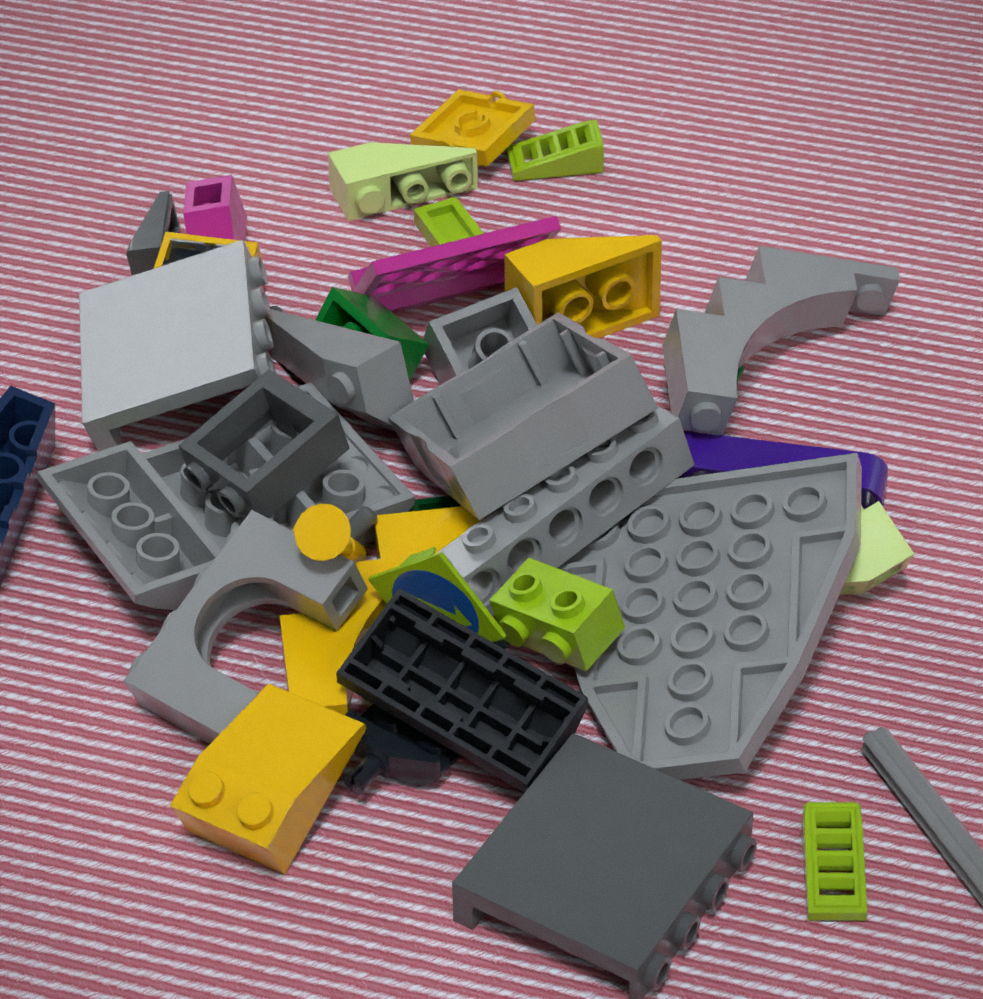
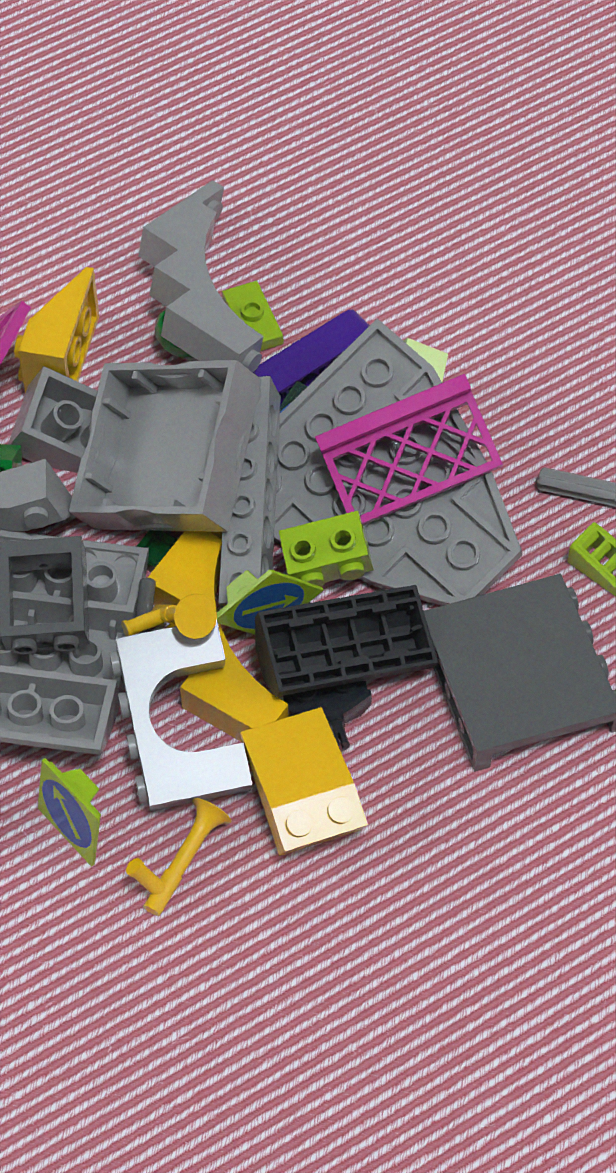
camera: 50 degrees left, 15 degrees up
(56, 764) = (162, 888): none -> yellow piece
(59, 659) = (67, 805): none -> lime piece
(760, 546) = (395, 419): none -> dark pink fence
(791, 407) = (252, 307): none -> lime plate

